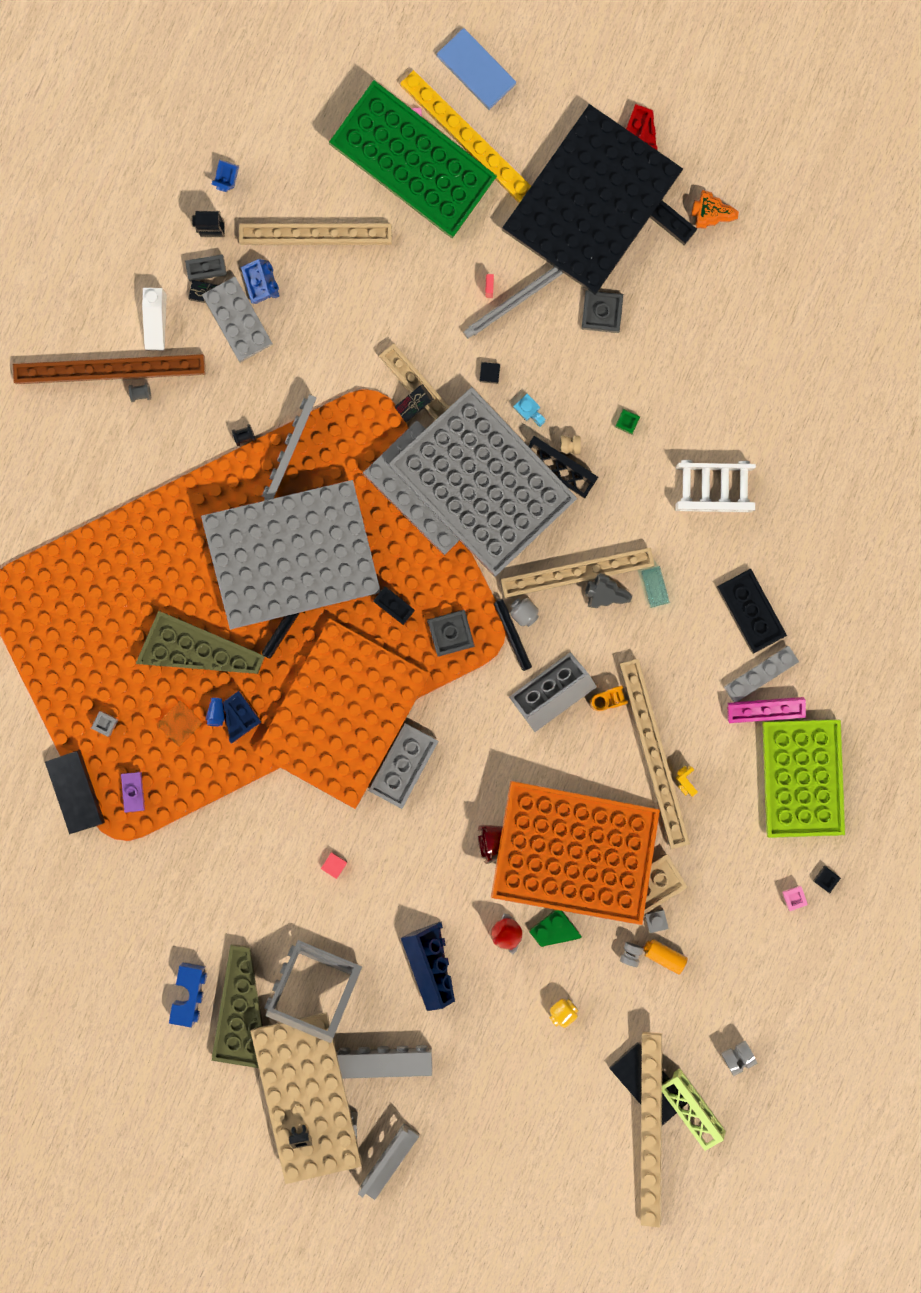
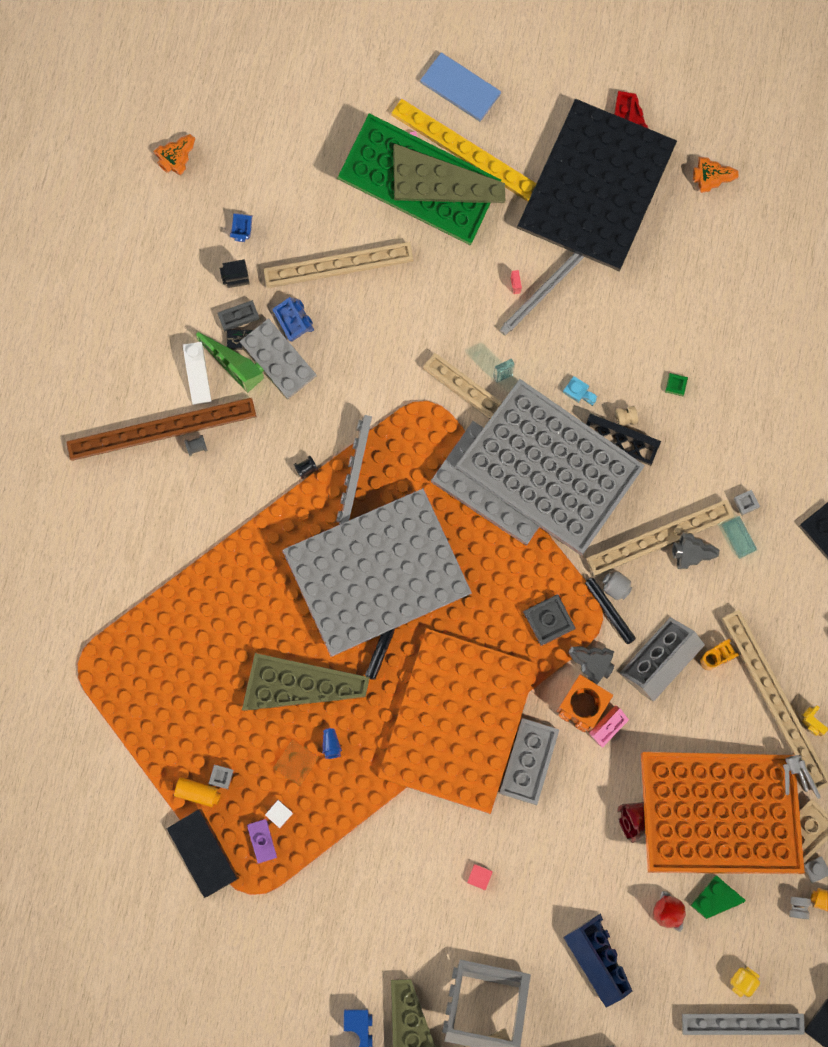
camera: 15 degrees left, 10 degrees down
(78, 734) = (197, 792): none -> light orange brick
(153, 769) = (279, 814): none -> white tile
(173, 86) = (175, 154): none -> orange rock
(197, 321) = (238, 366): none -> bright green wedge
(239, 716) = (355, 743): dark blue wing -> none
(394, 605) = (487, 603): black plate -> none
(414, 403) = (467, 405): black tile -> none
(425, 163) = (430, 179): none -> olive wing
(457, 375) = (503, 370): none -> clear light blue tile
(484, 722) = (601, 700): none -> orange brick
(485, 682) = (593, 662): none -> dark grey rock
(487, 747) = (609, 726): none -> bright pink plate
(489, 372) = (533, 363): black tile -> none
(553, 1050) = (743, 1024): none -> light grey plate
(602, 312) = (629, 286): dark grey tile -> none
(658, 821) = (797, 765): none -> light grey plant
(669, 554) = (746, 502): none -> light grey plate
(673, 223) = (678, 192): black plate -> none
(724, 503) = (788, 444): white fence -> none

